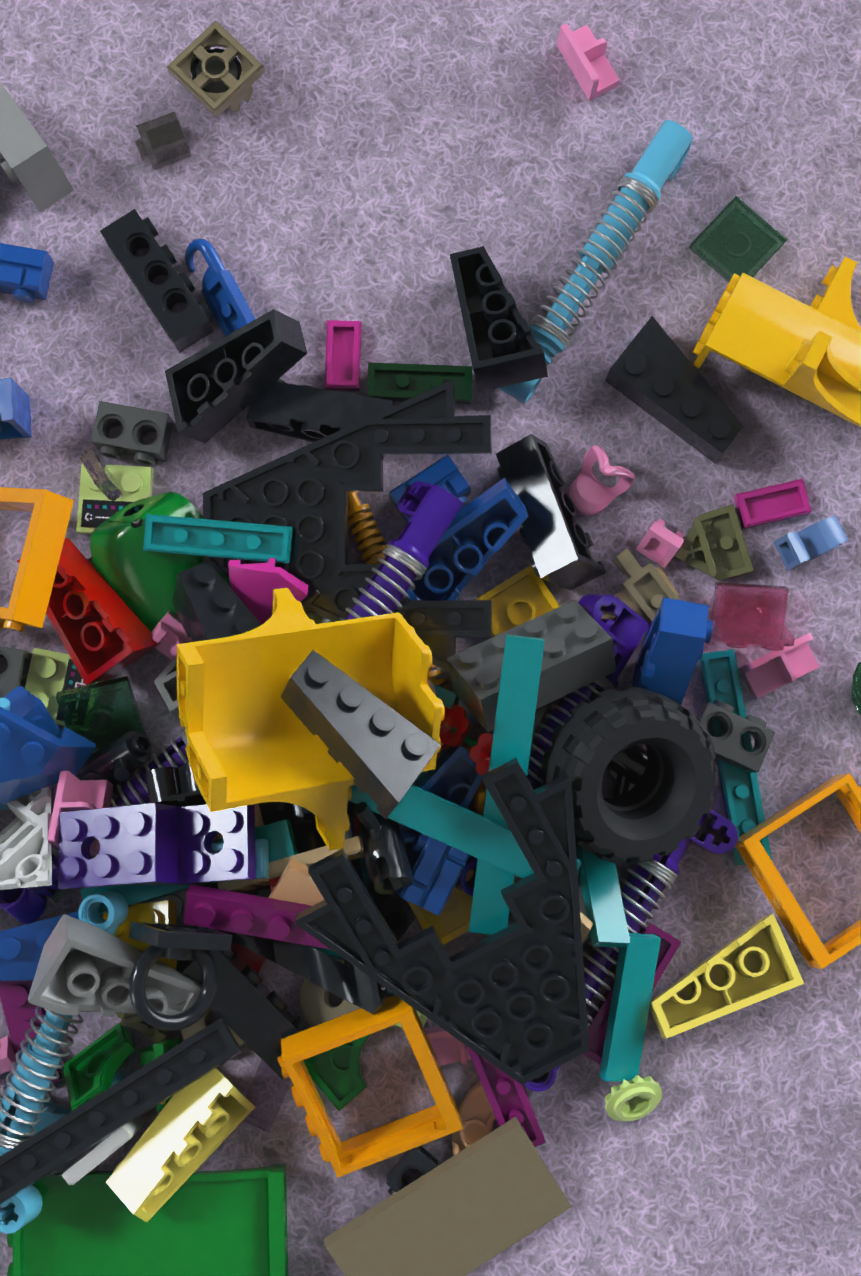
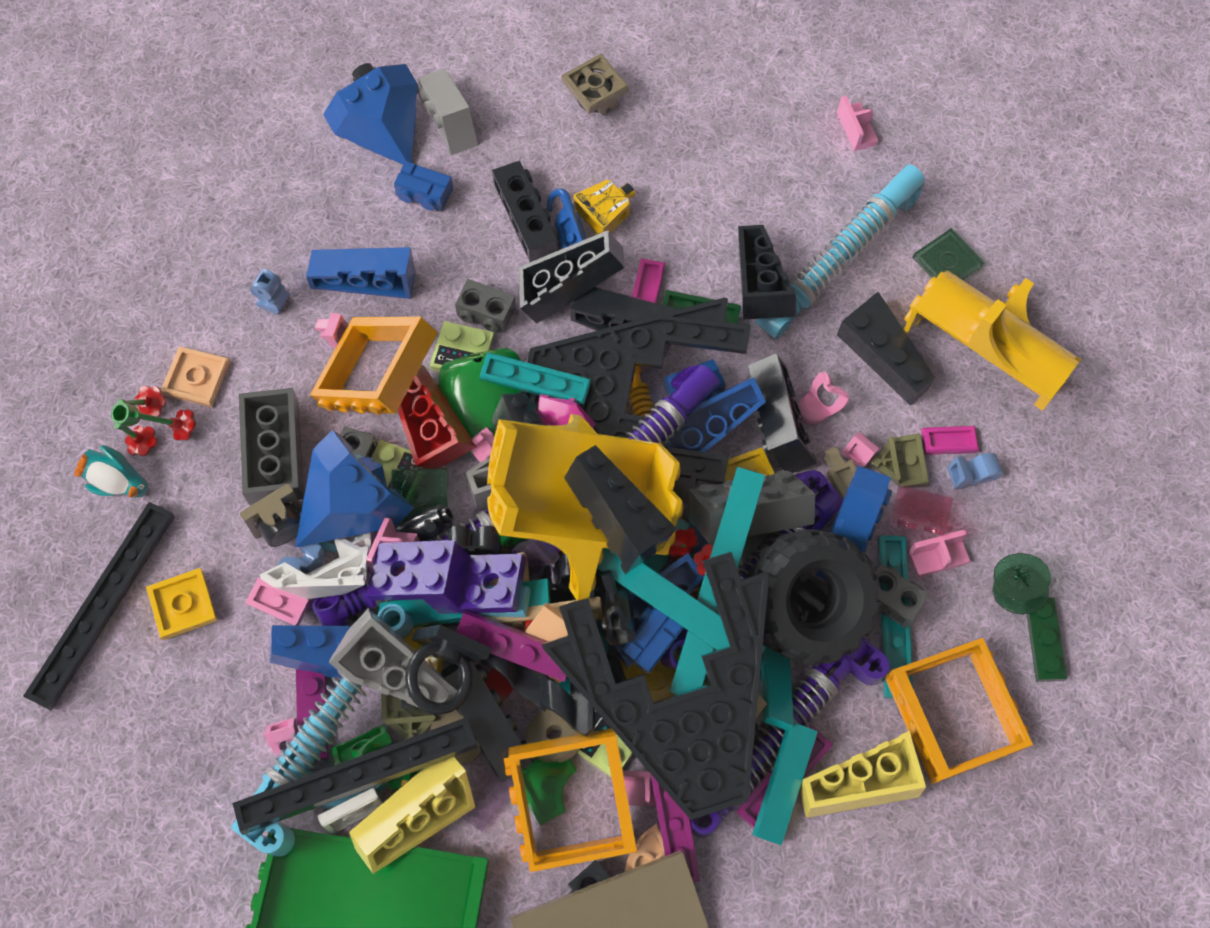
camera: 10 degrees right, 15 degrees down
(100, 475) = (459, 324): tile -> none
(162, 141) = (547, 123): clear smoke brick -> none
(264, 253) = (604, 205): none -> yellow torso
(633, 1099) = (781, 866): yellowish green gear -> none

